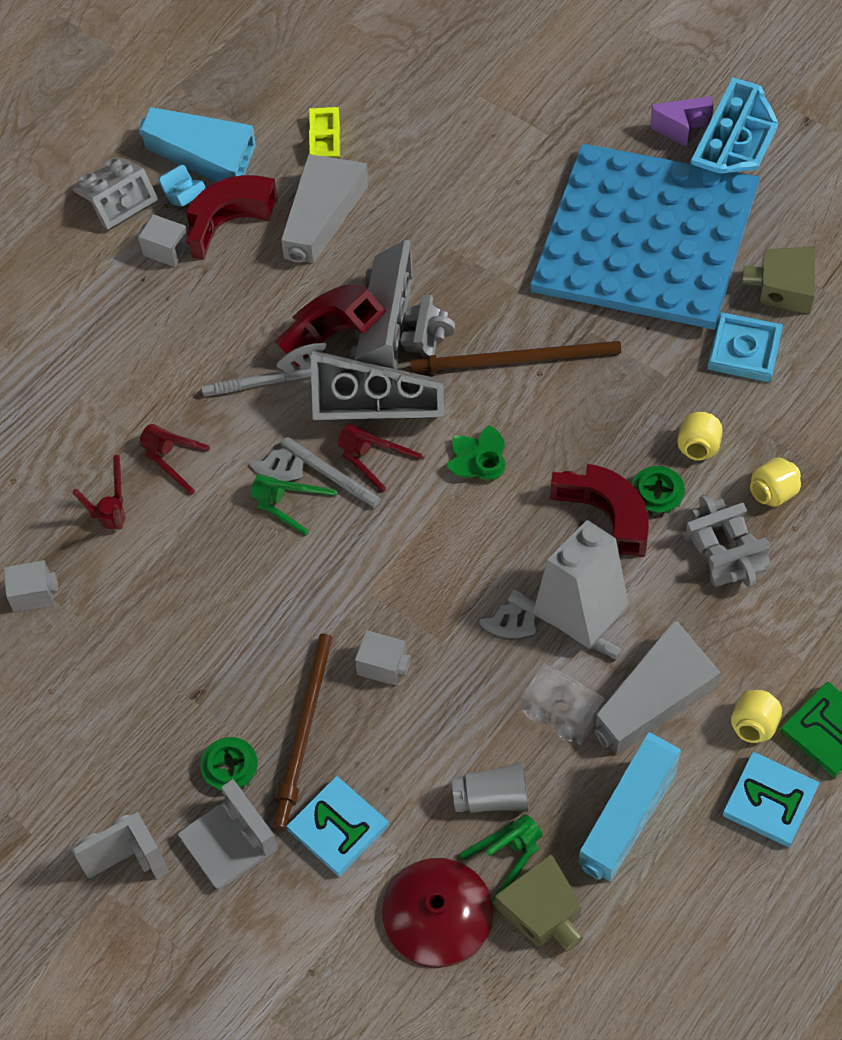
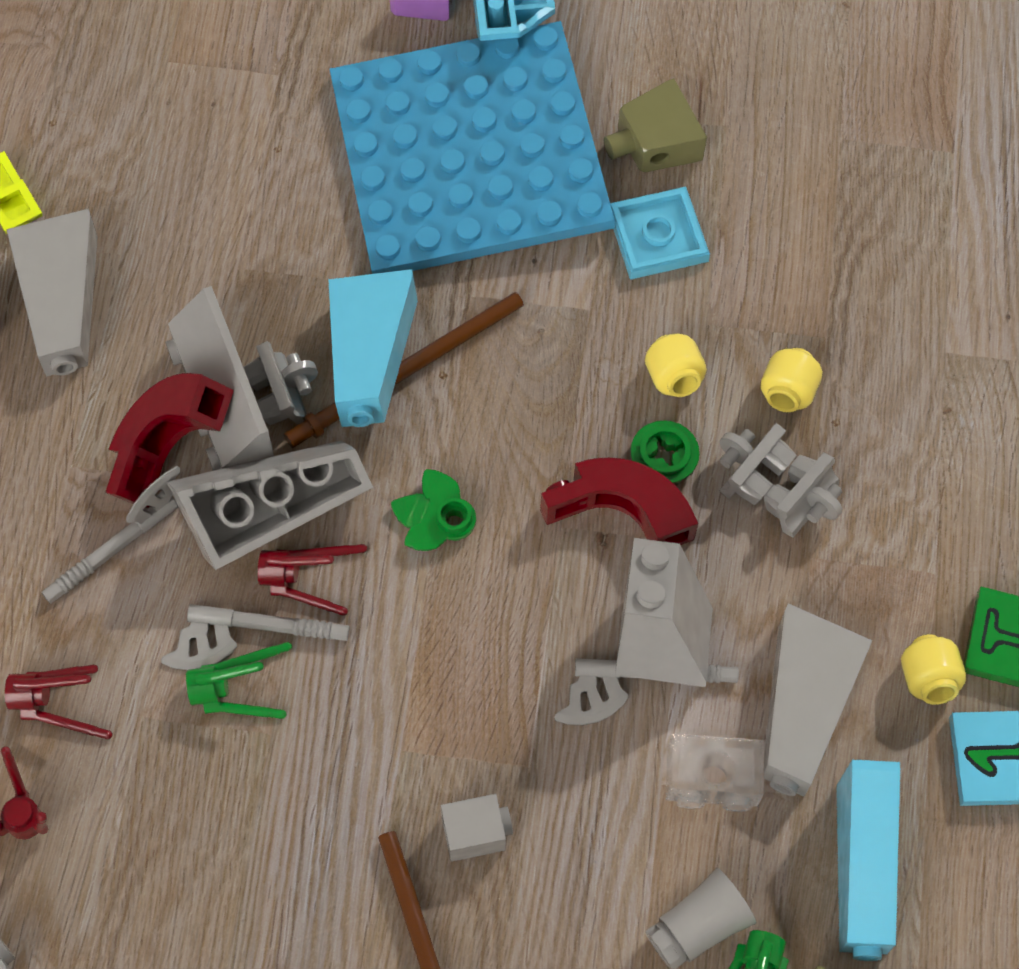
camera: 35 degrees left, 5 degrees up
(498, 325) = (369, 337): none -> medium azure slope

